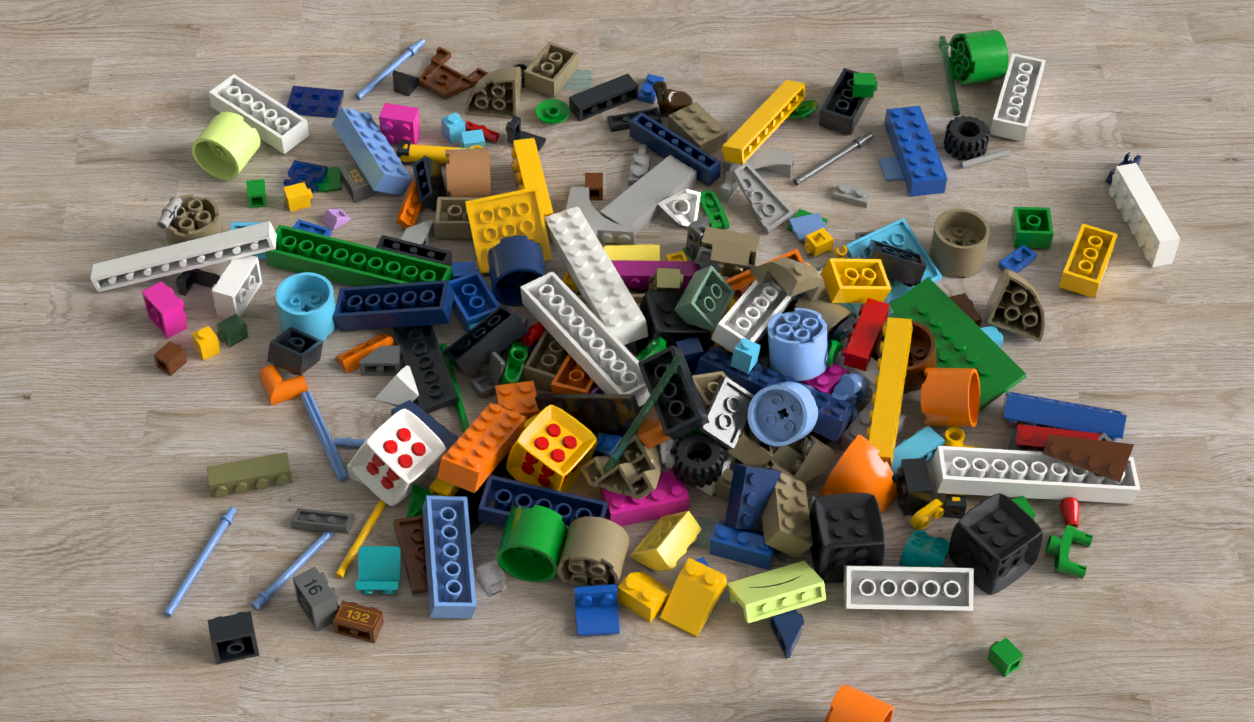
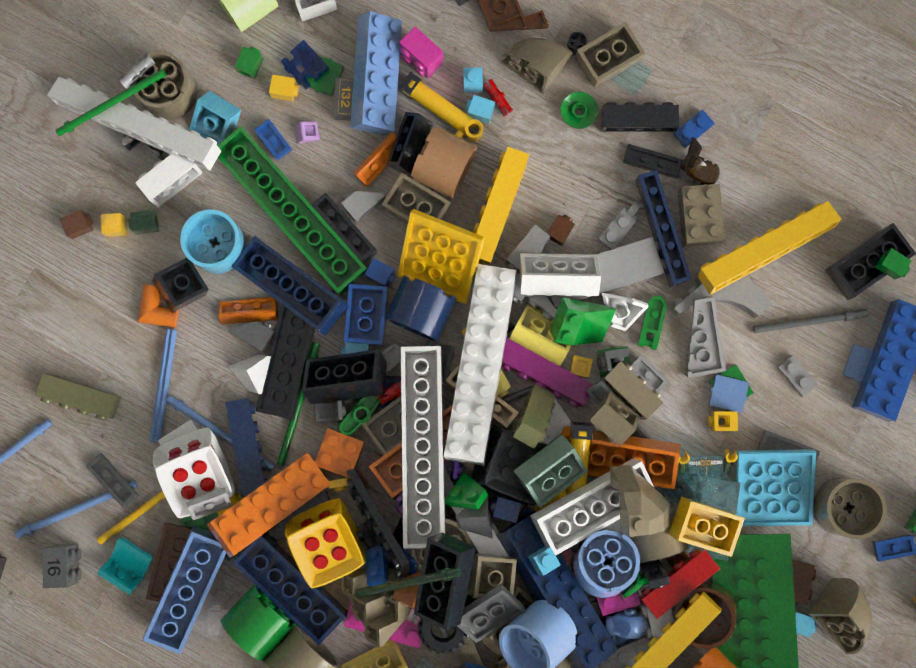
camera: 30 degrees right, 35 degrees up
(127, 282) = (70, 125): none -> green bar
(165, 309) = (94, 169): dark pink brick -> none
(358, 621) = (87, 601): reddish brown brick -> none
(429, 454) = (208, 503): none -> light grey plate
(514, 133) = (533, 128): black bracket -> none
(617, 201) = (559, 274): none -> white slope
(654, 224) = (581, 322): none -> green slope
(804, 109) = (822, 247): green dish -> none
(898, 263) = (772, 498): black slope -> none

